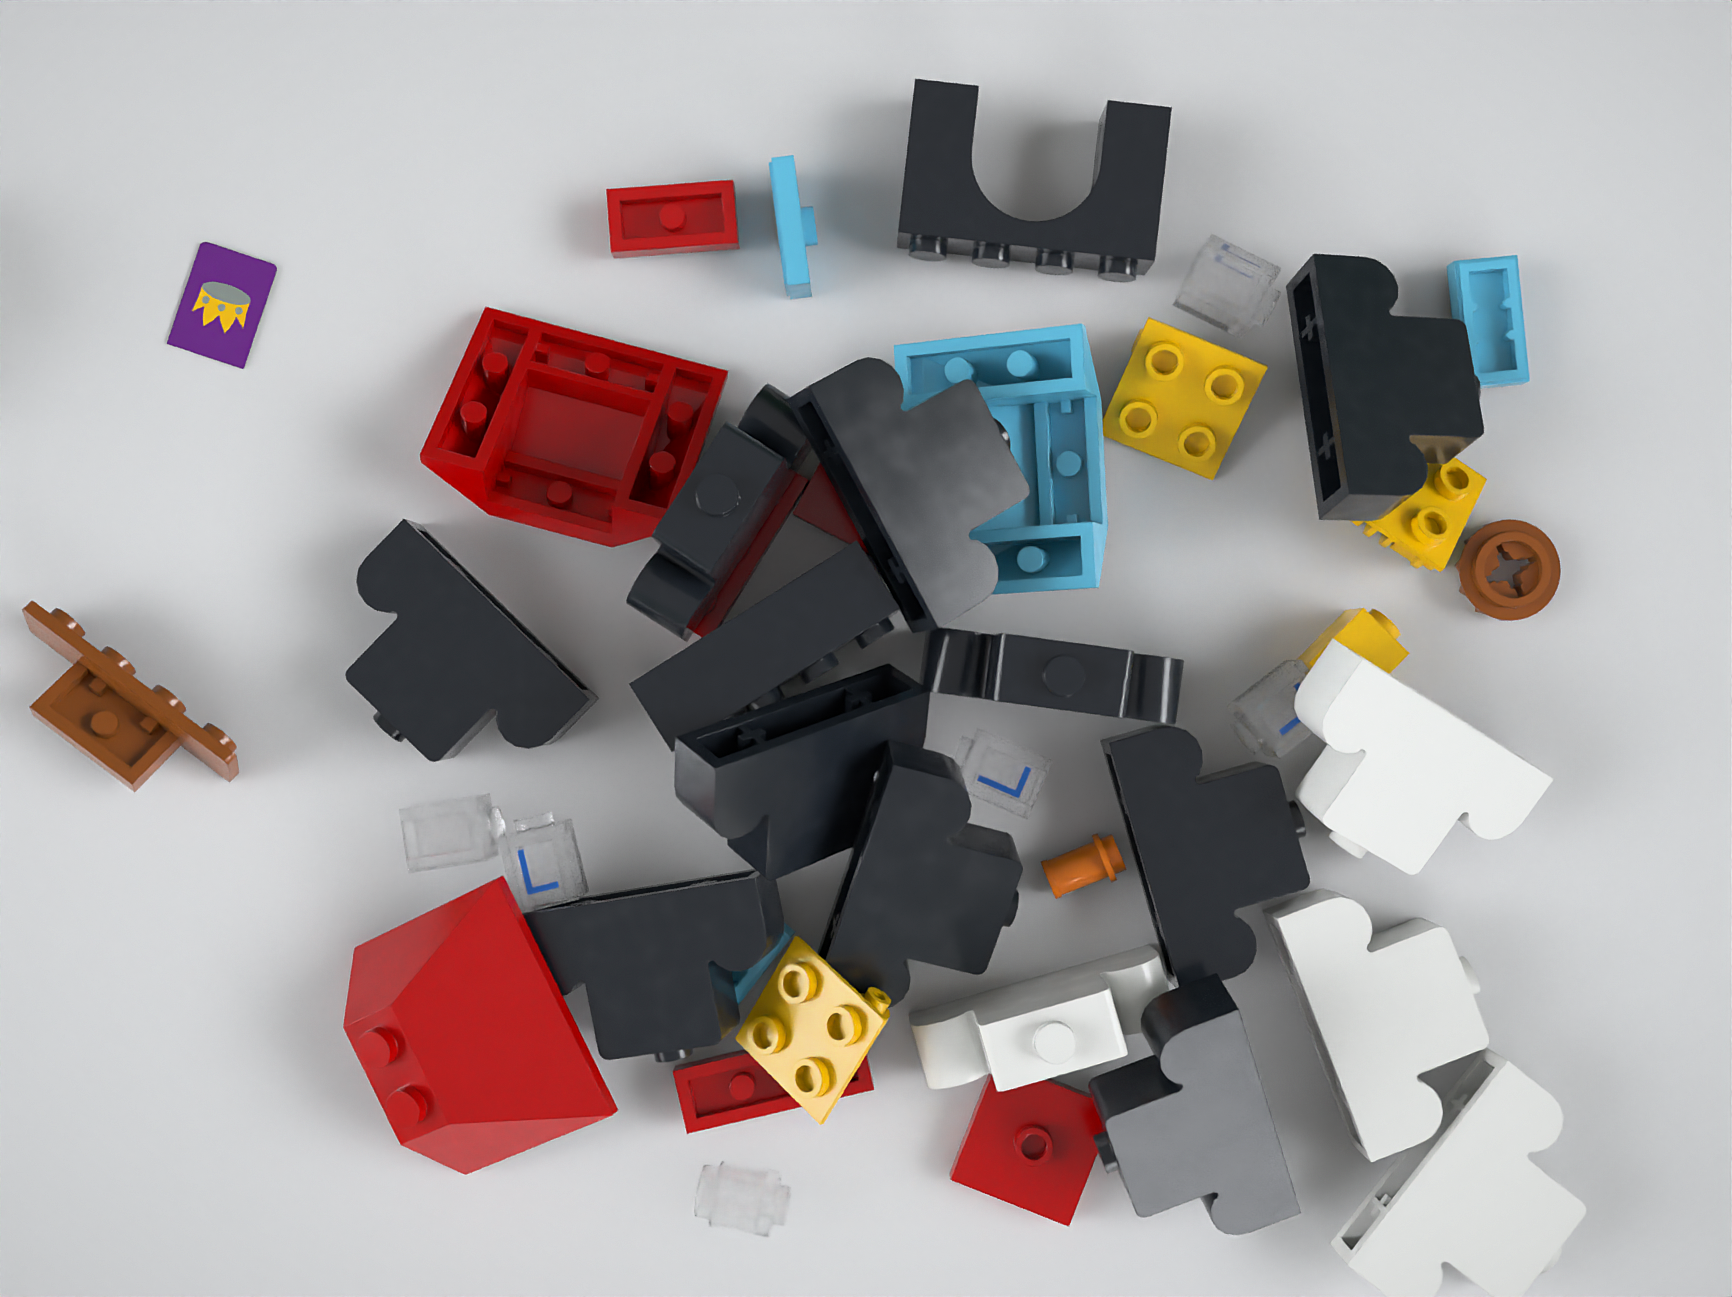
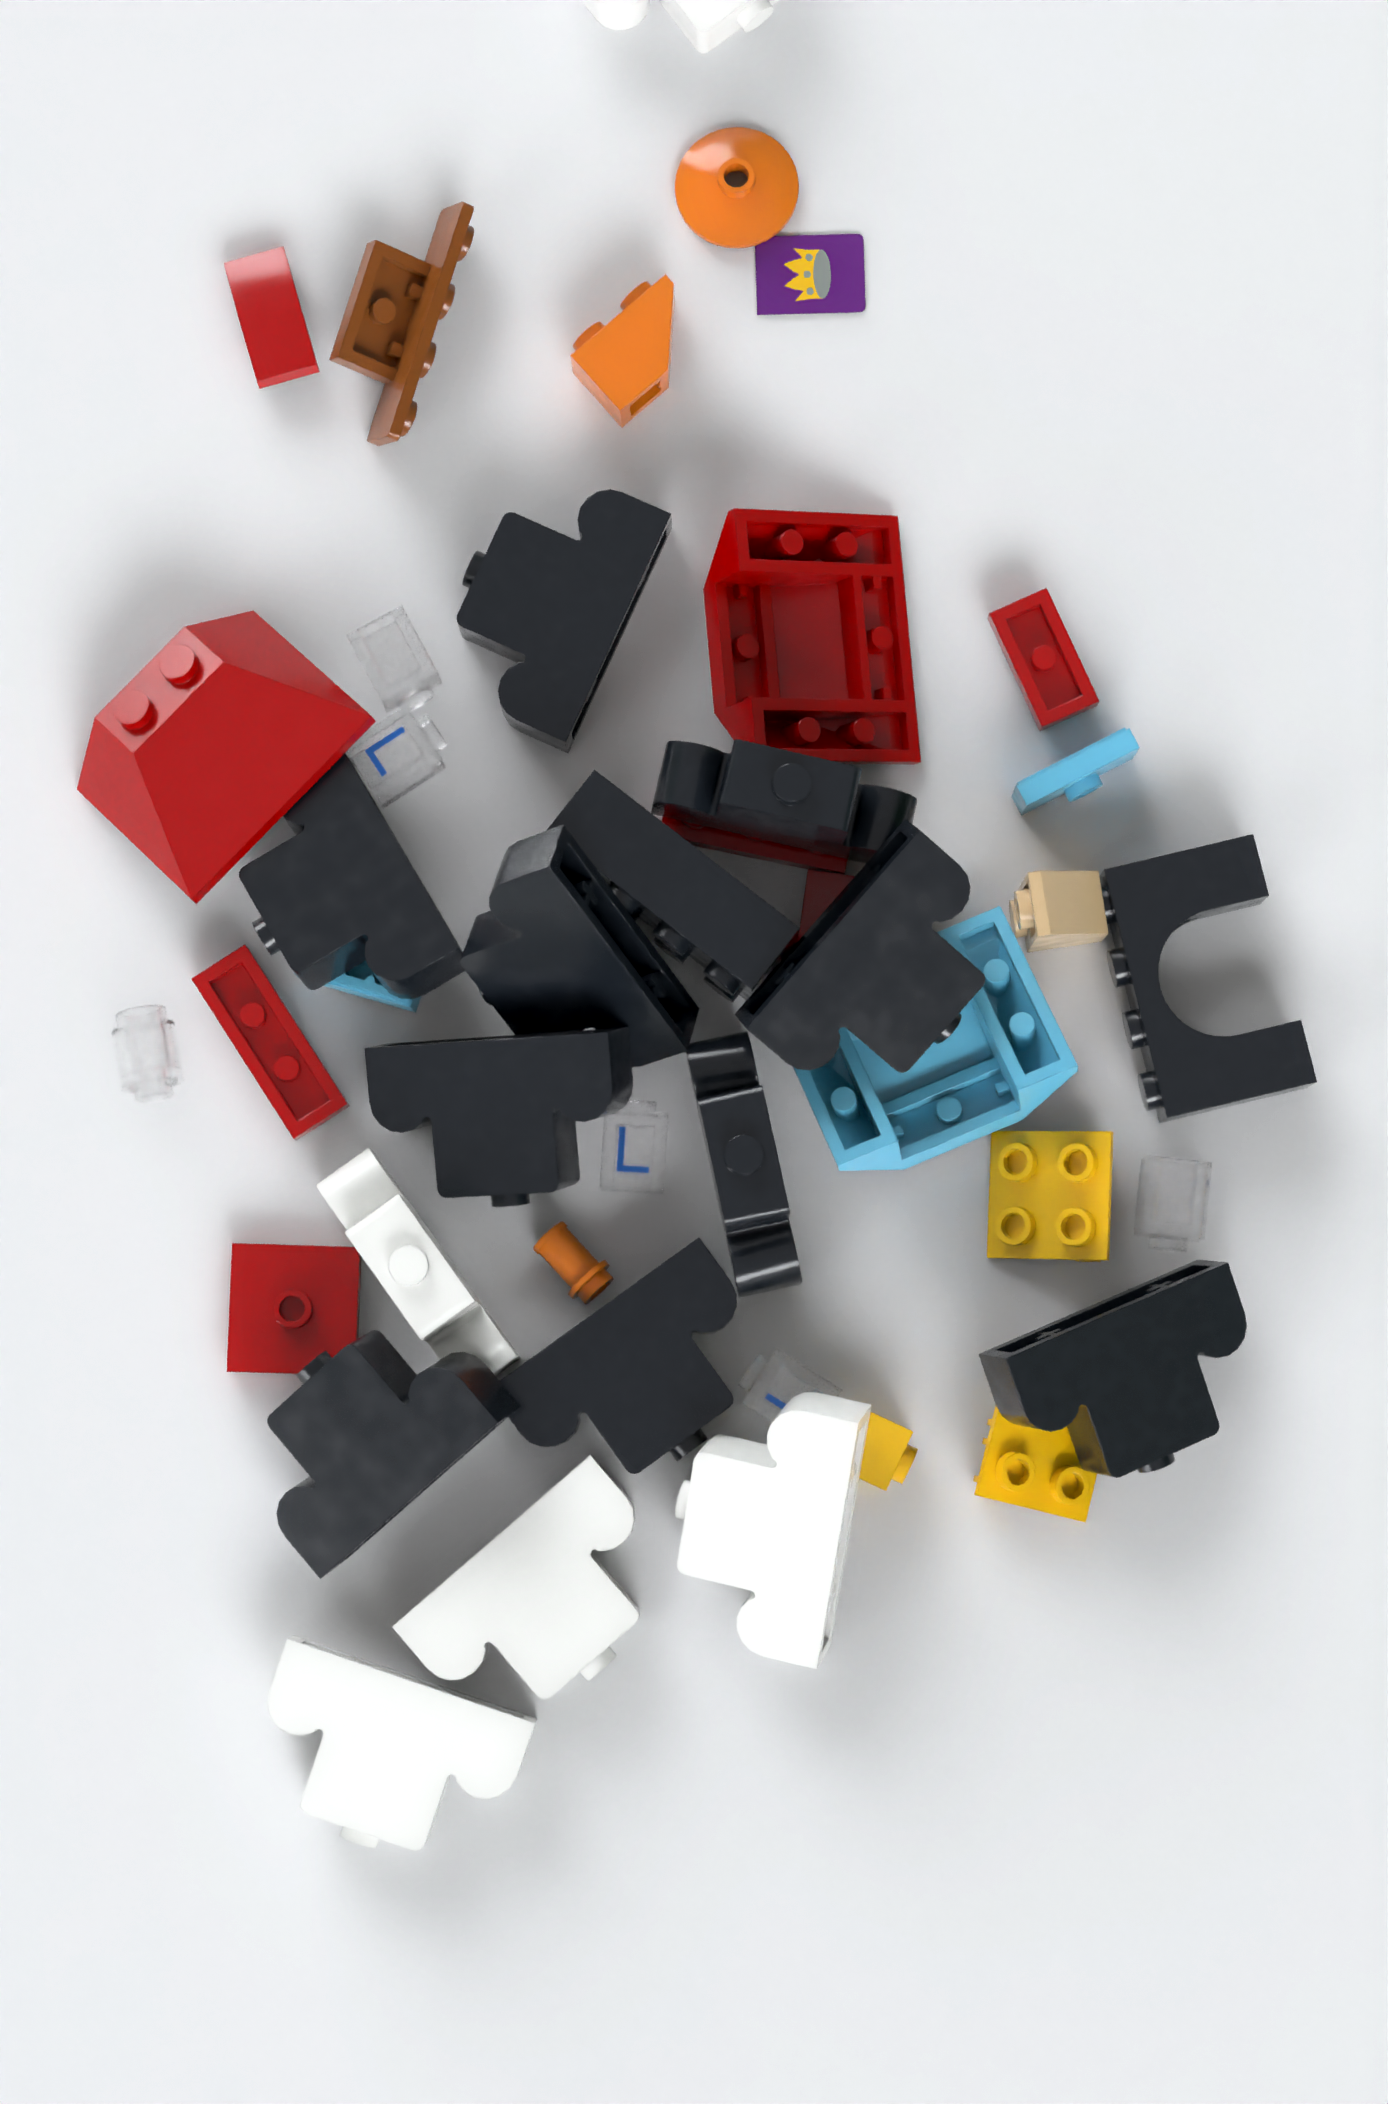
camera: 70 degrees right, 5 degrees down
(73, 832) = (271, 317): none -> red slope
(137, 346) = (736, 214): none -> orange dish
(234, 502) = (631, 355): none -> orange slope
(812, 1028) = (334, 1055): yellow hinge -> none
(918, 290) = (1058, 909): none -> tan slope
(1489, 302) = (1233, 1464): medium azure plate -> none
(1534, 581) = (1034, 1570): dark orange gear -> none

